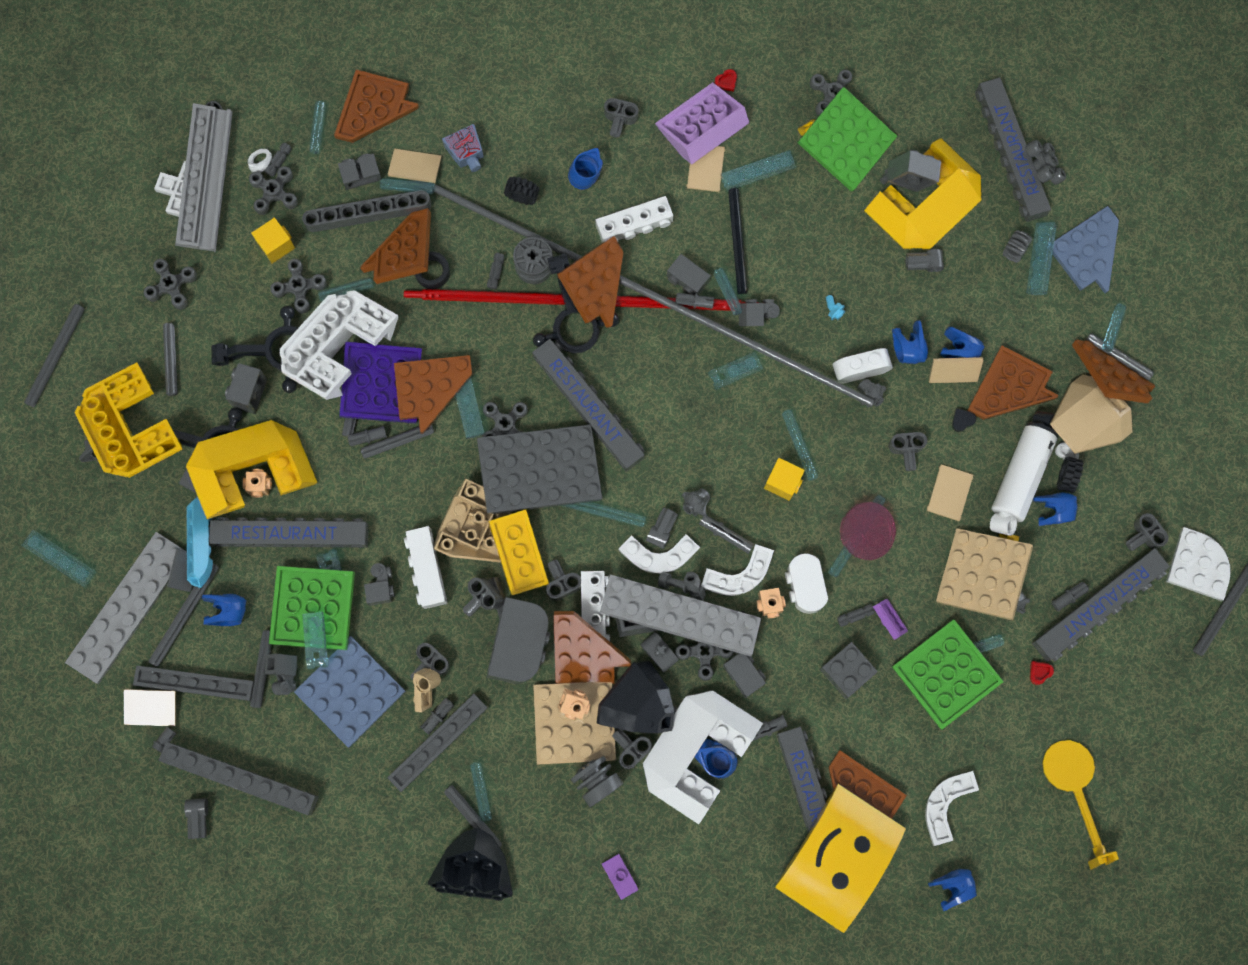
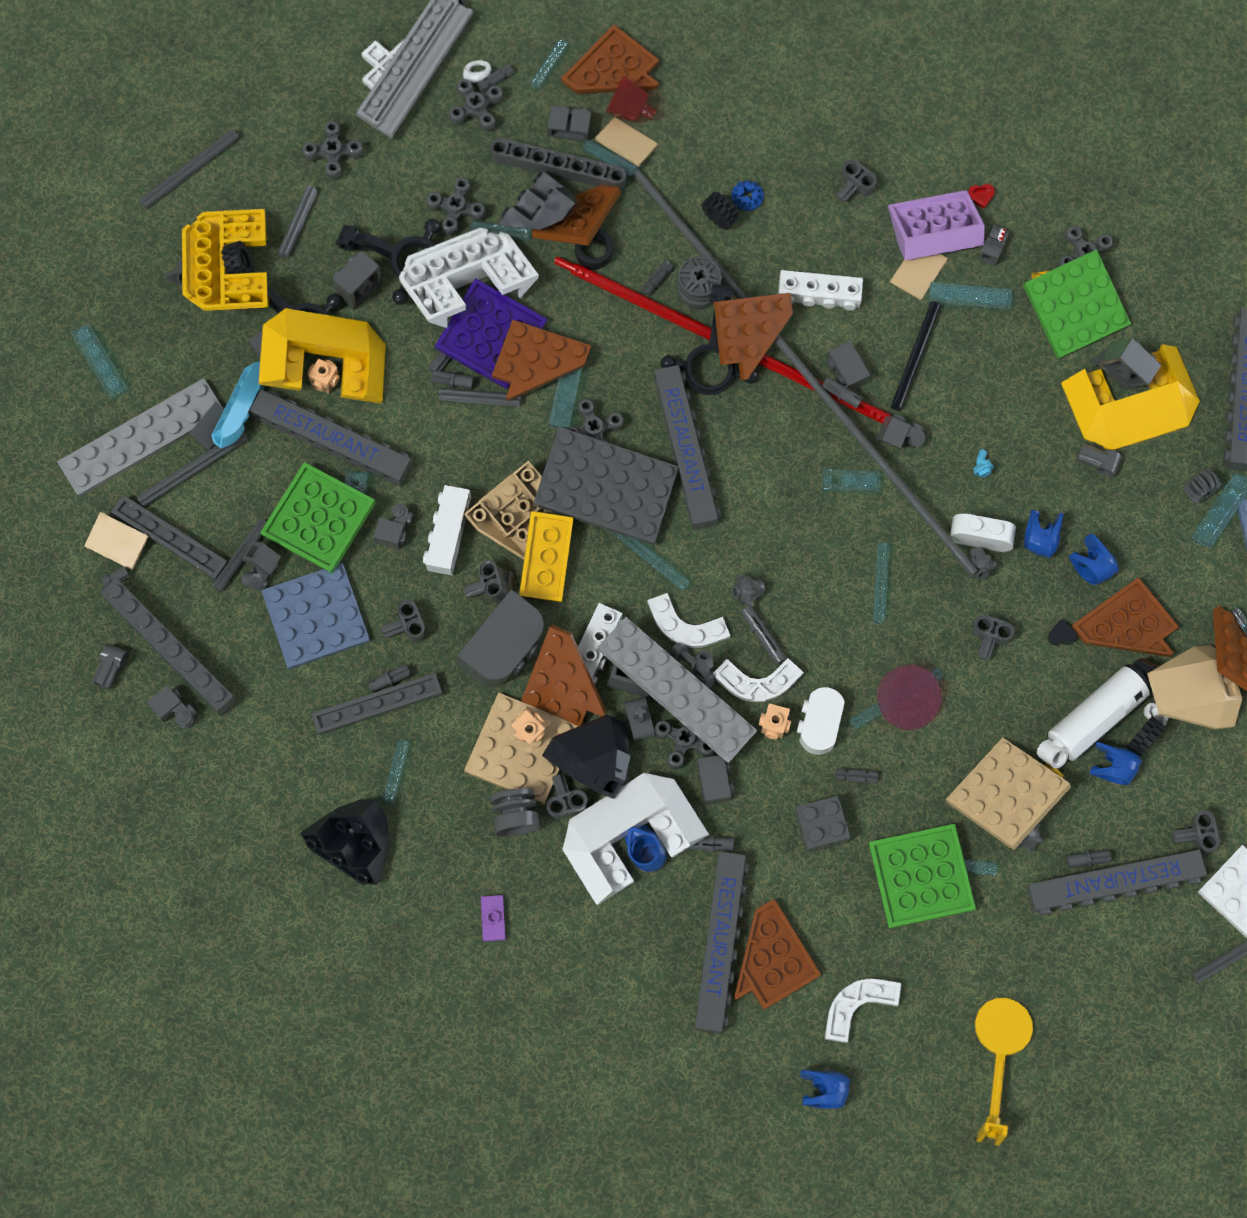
camera: 25 degrees right, 5 degrees down
(135, 417) = (237, 258): none -> black tyre
(232, 608) = (239, 484): blue helmet -> none
(262, 826) = (168, 703): none -> dark grey brick
(273, 240) = (453, 152): yellow head -> none
(315, 640) = (306, 548): clear light blue plate -> none
(371, 254) = (541, 205): none -> black brick
(402, 131) = (630, 102): none -> clear red torso
(424, 682) = (391, 638): tan plate -> none
(465, 147) = (684, 145): sand blue torso -> none
(467, 811) = (373, 782): dark grey axle -> none
(537, 174) = (746, 203): none -> blue gear
(561, 581) = (575, 605): dark grey beam -> none
(585, 169) = (795, 210): blue helmet -> none
(660, 532) = (697, 604): dark grey piece -> none
(728, 291) = (881, 389): clear light blue axle -> none
(757, 119) = (994, 245): none -> dark grey leg
(784, 479) = (848, 607): yellow head -> none
(841, 859) = (722, 1001): yellow slope -> none
(890, 619) = (890, 794): medium lavender plate -> none
(950, 492) = (1013, 700): tan piece -> none
(955, 370) = (1077, 579): tan piece -> none
(1039, 672) = (1020, 920): red tile -> none

